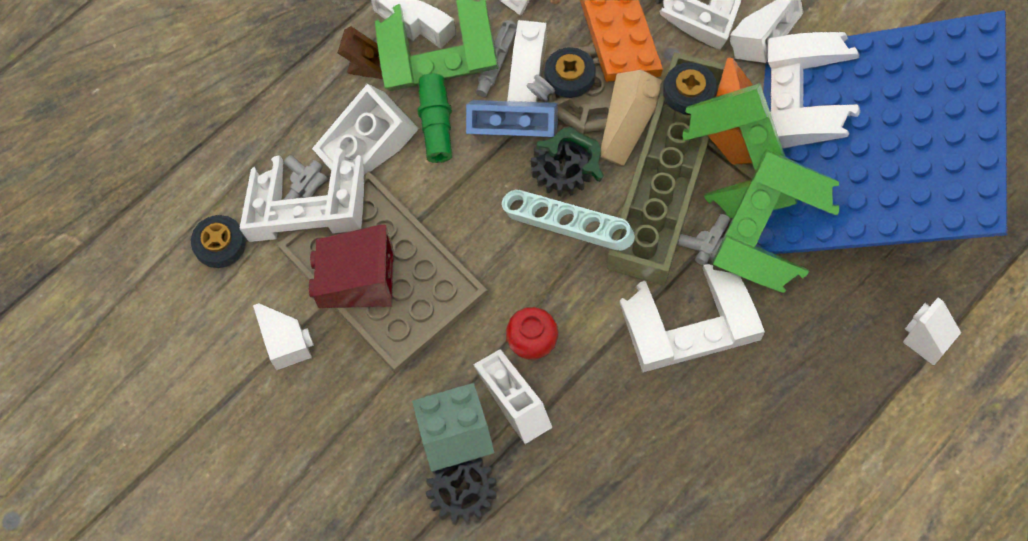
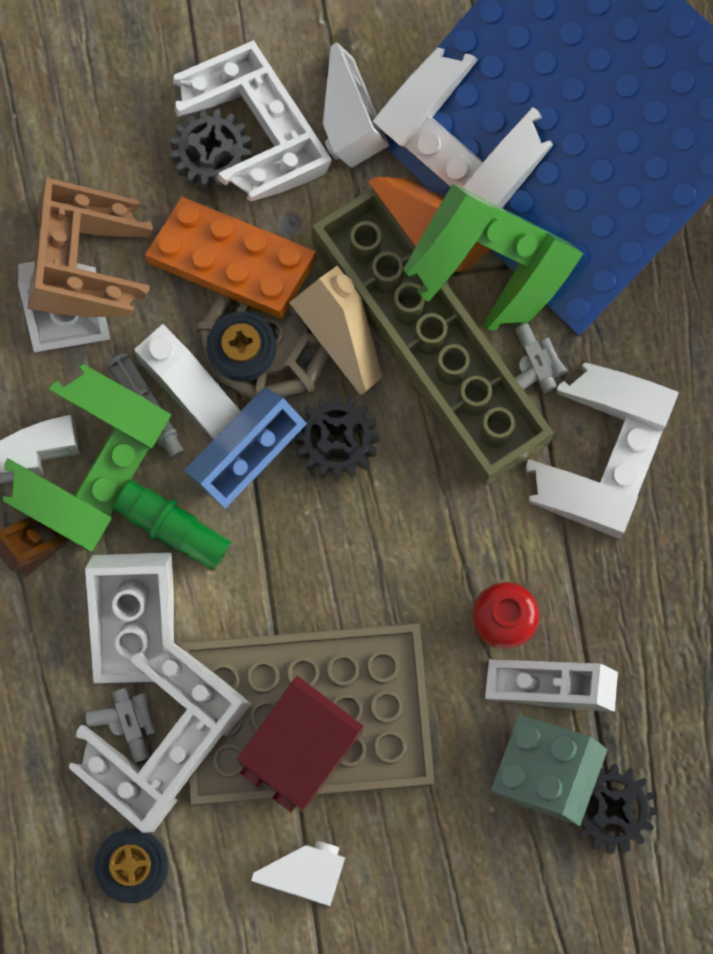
camera: 60 degrees left, 10 degrees up
(540, 88) = (234, 390): light grey bush -> none
(576, 227) = (431, 484): light aqua beam -> none
(580, 139) = (345, 393): dark green helmet -> none
(680, 95) = (371, 260): black wheel -> none
(772, 177) = (548, 253): bright green wedge -> none

